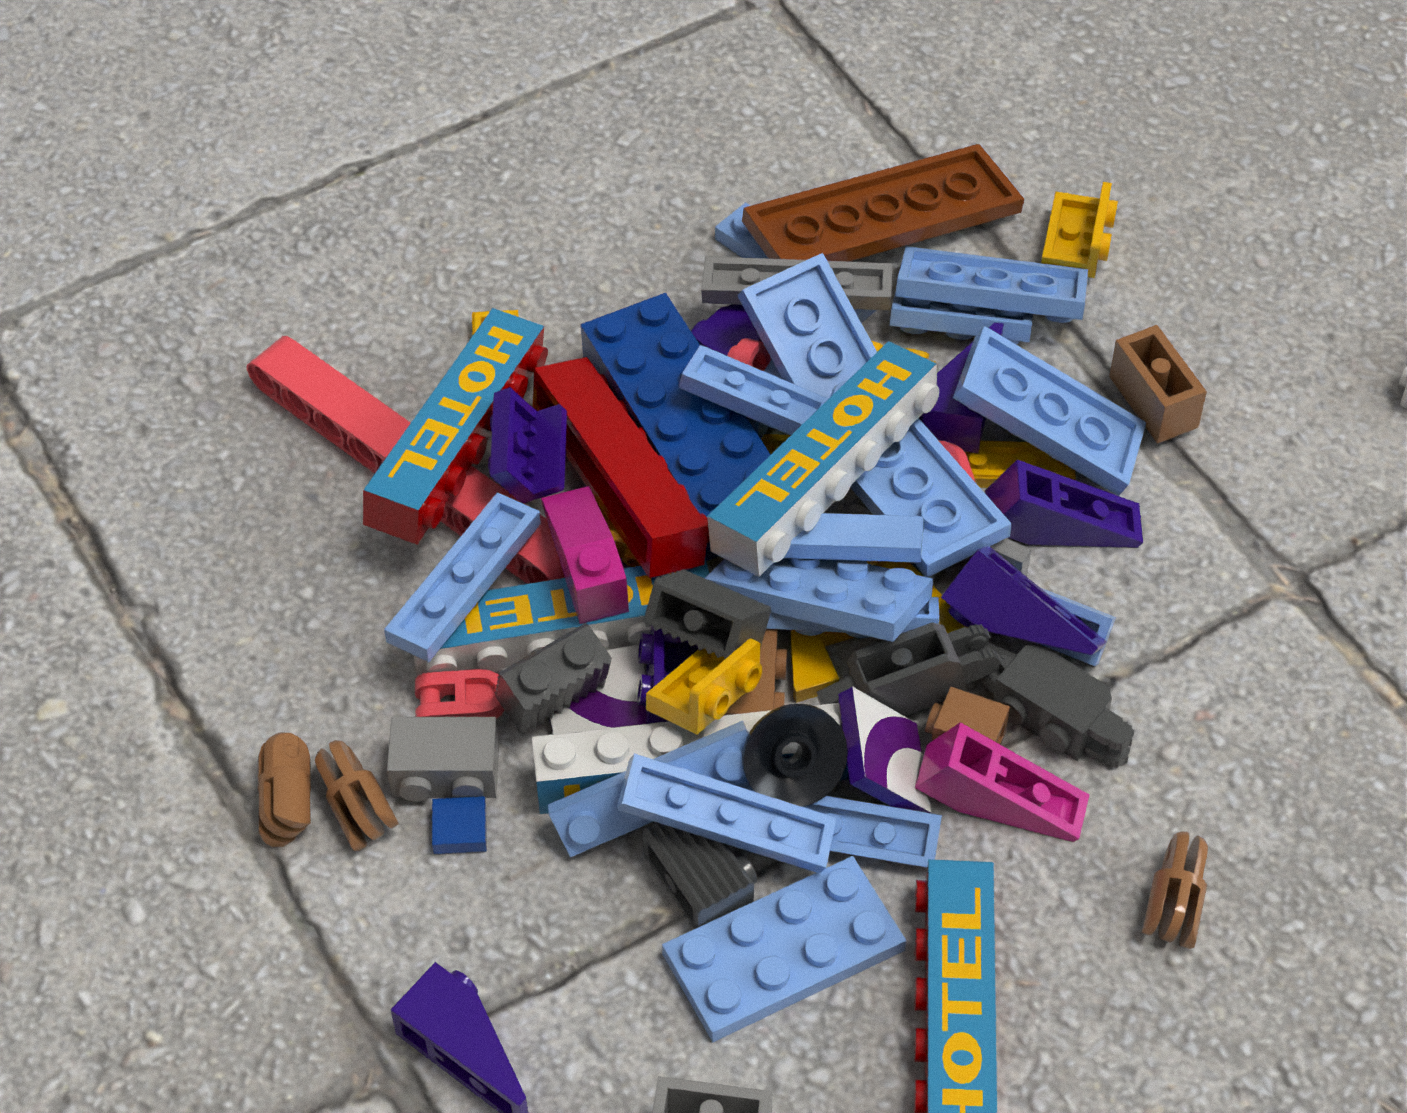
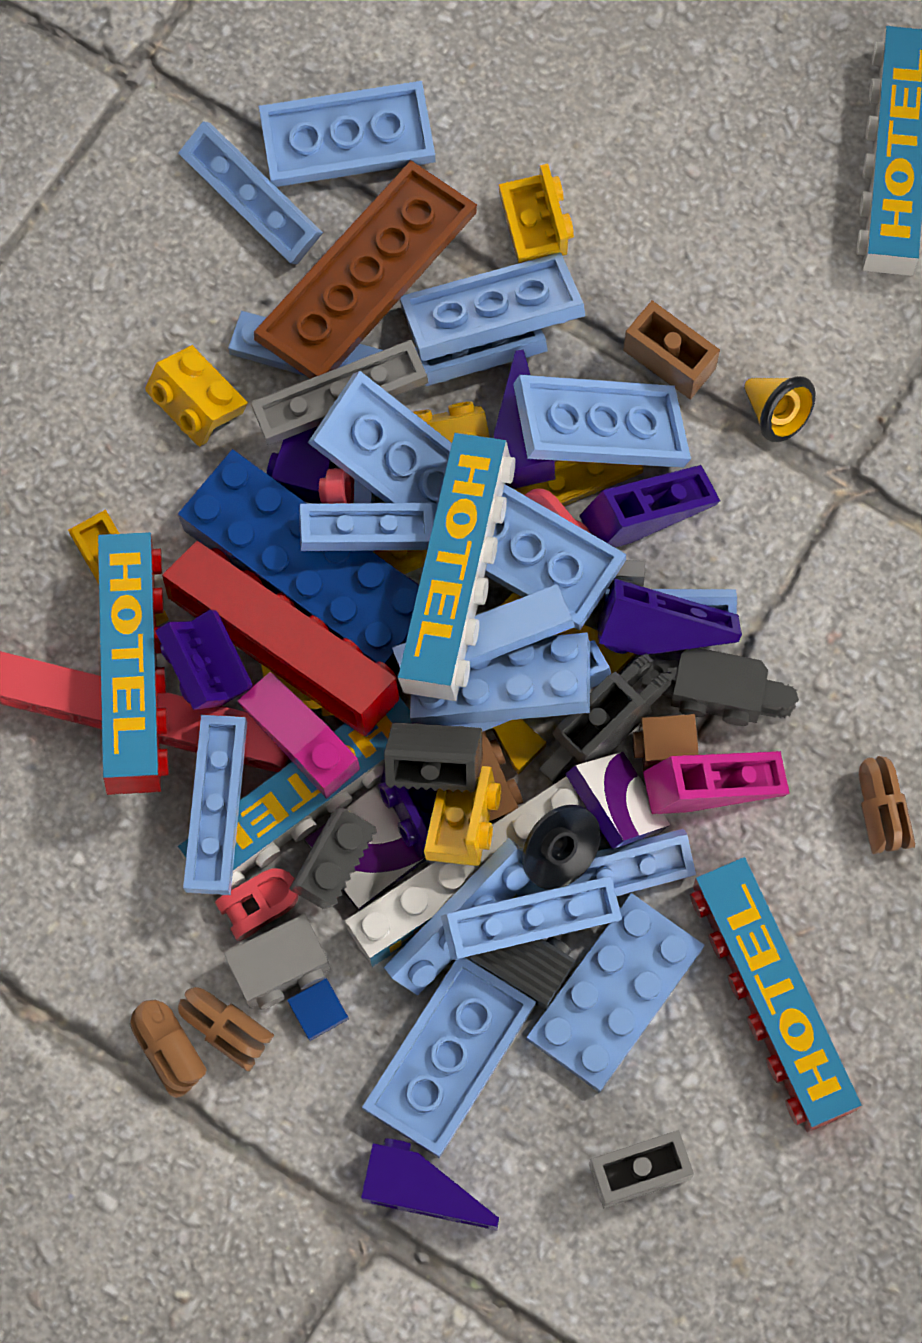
camera: 25 degrees left, 20 degrees up
(568, 926) = (449, 1056): none -> light blue plate
(659, 250) = (194, 394): none -> yellow bracket
(809, 115) = (250, 193): none -> light blue plate
(928, 104) = (347, 133): none -> light blue plate
(1254, 479) = (790, 397): none -> yellow hat

